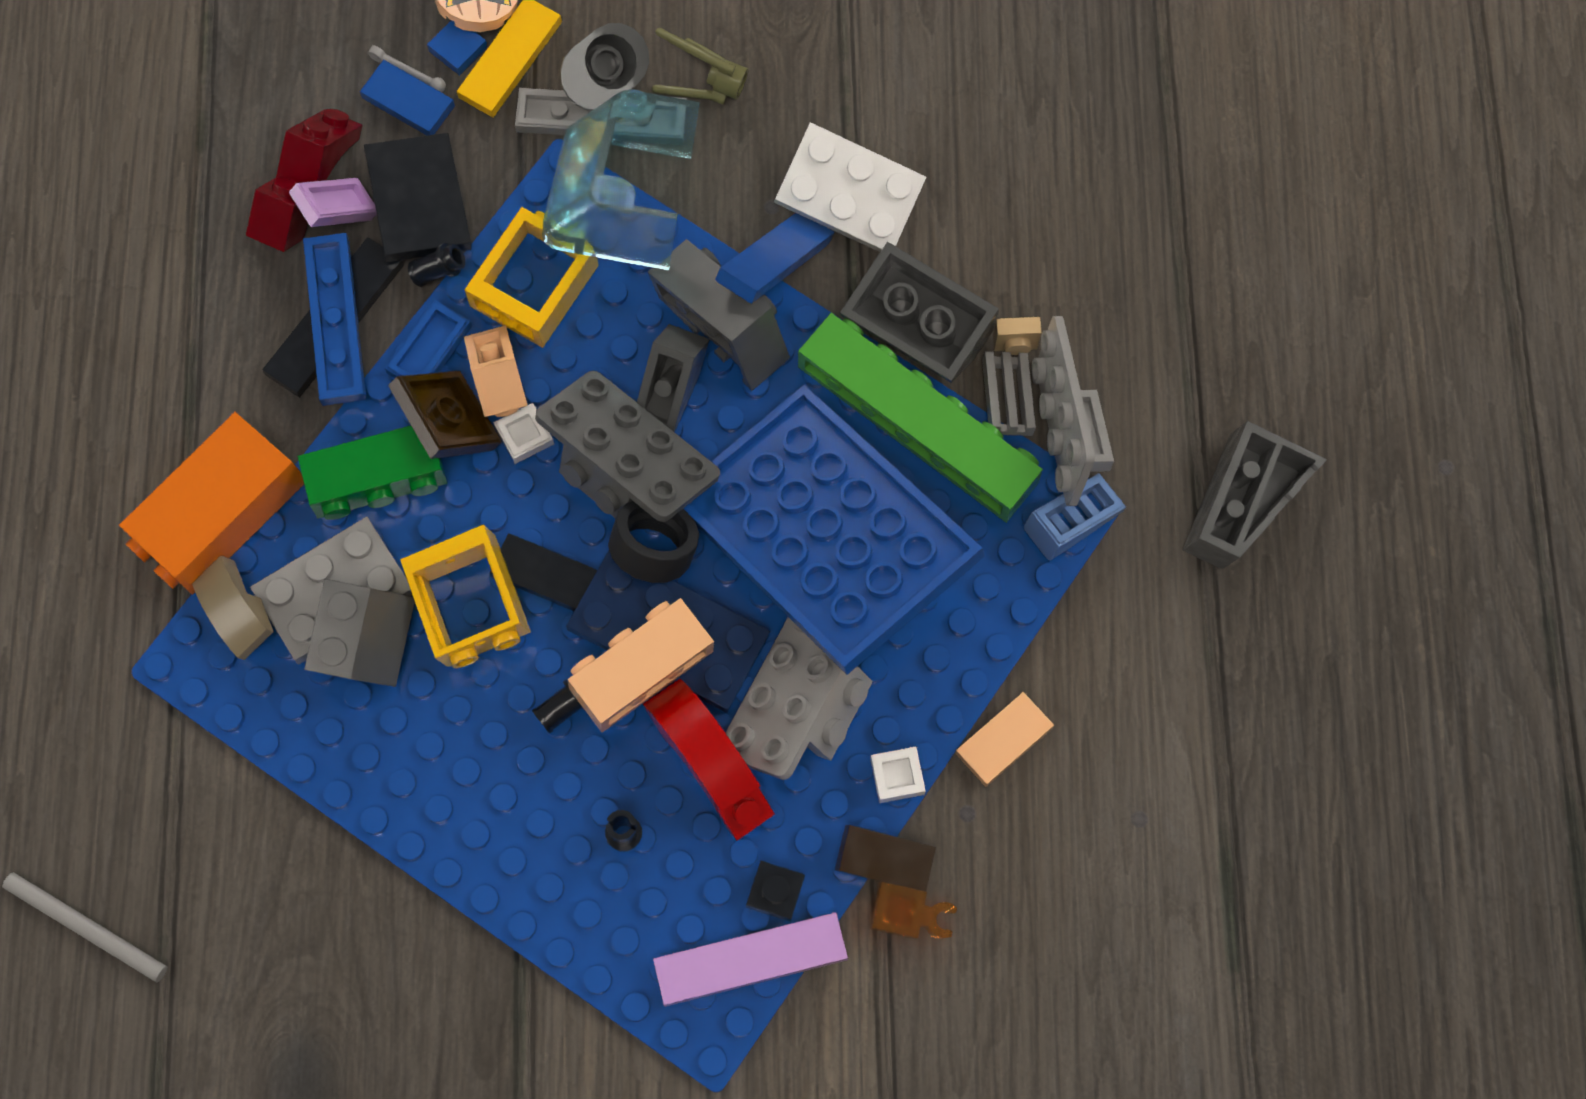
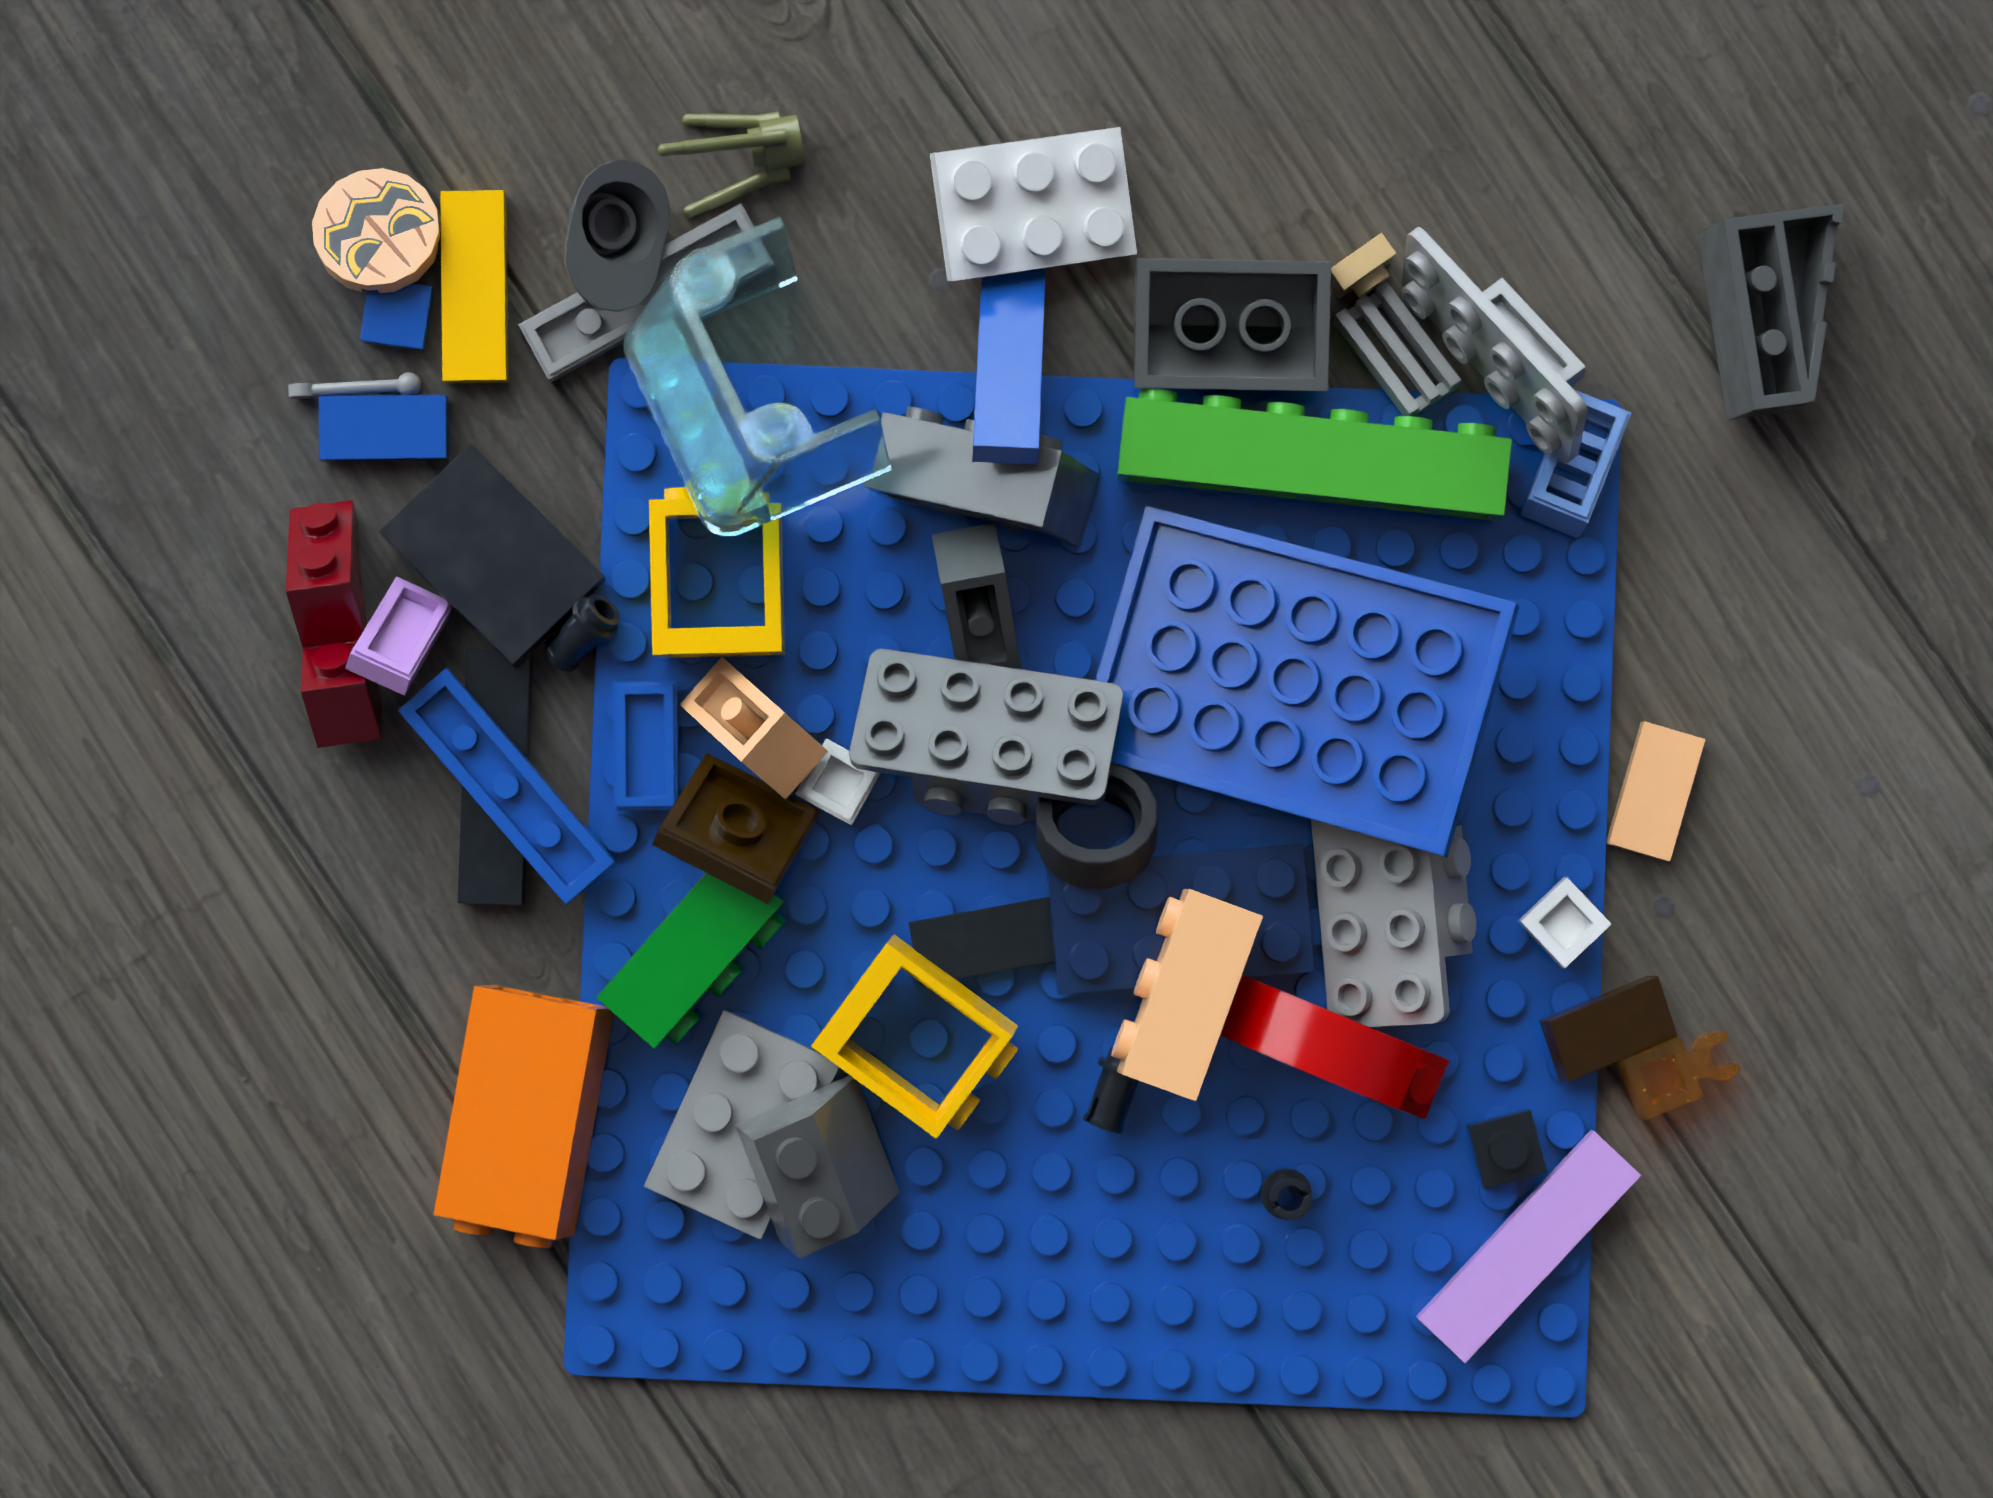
camera: 30 degrees left, 15 degrees up
(233, 612) = (648, 1232): dark tan slope -> none

